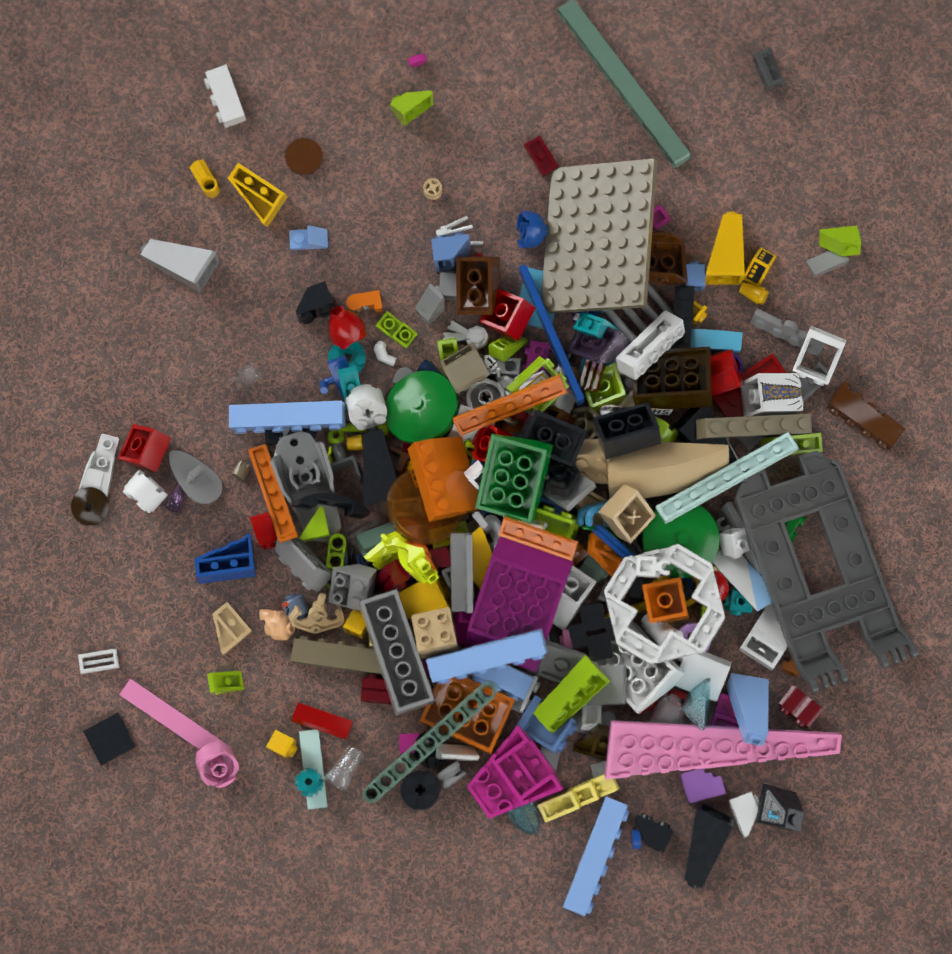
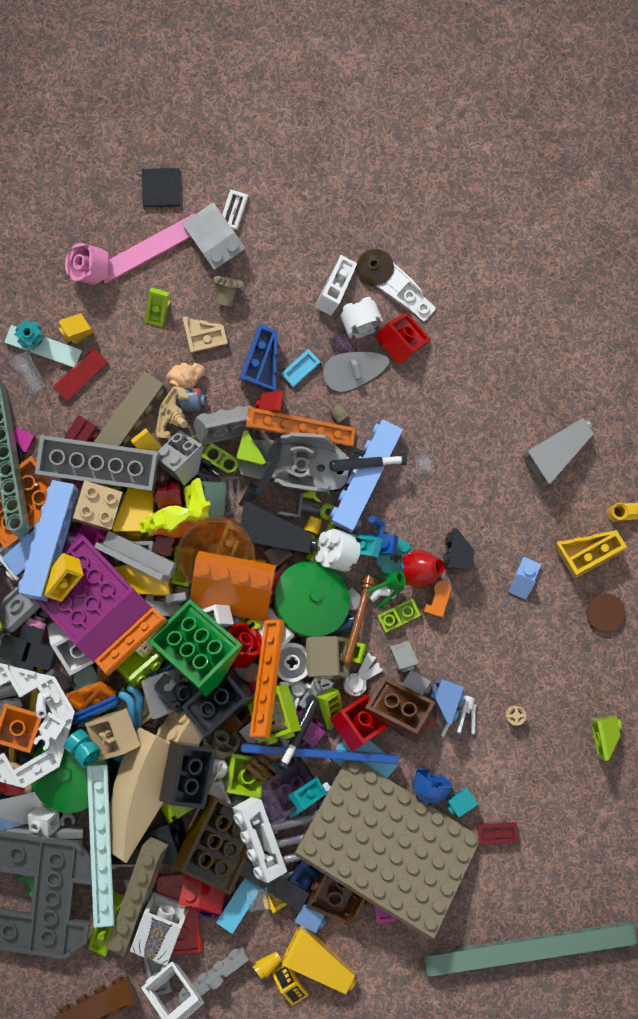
camera: 115 degrees right, 5 degrees up
(127, 530) = (336, 285): none -> white slope
(133, 663) = (214, 236): none -> light grey slope
(176, 626) = (227, 289): none -> dark tan gear
(217, 526) = (300, 368): none -> medium azure tile
(275, 418) = (360, 463): none -> black piece
(368, 343) = (394, 581): none -> green plant
(383, 369) = (367, 583): none -> dark orange piece
(512, 621) = (63, 577): none -> yellow slope
(526, 360) = (304, 721): none -> black piece
(530, 198) = (461, 802): none -> teal brick
(634, 586) = (41, 705): none -> white arm
(652, 532) = (82, 747): none -> teal wheel
(660, 298) = (304, 875): none -> dark blue slope
(702, 324) = (258, 899): none -> clear tile

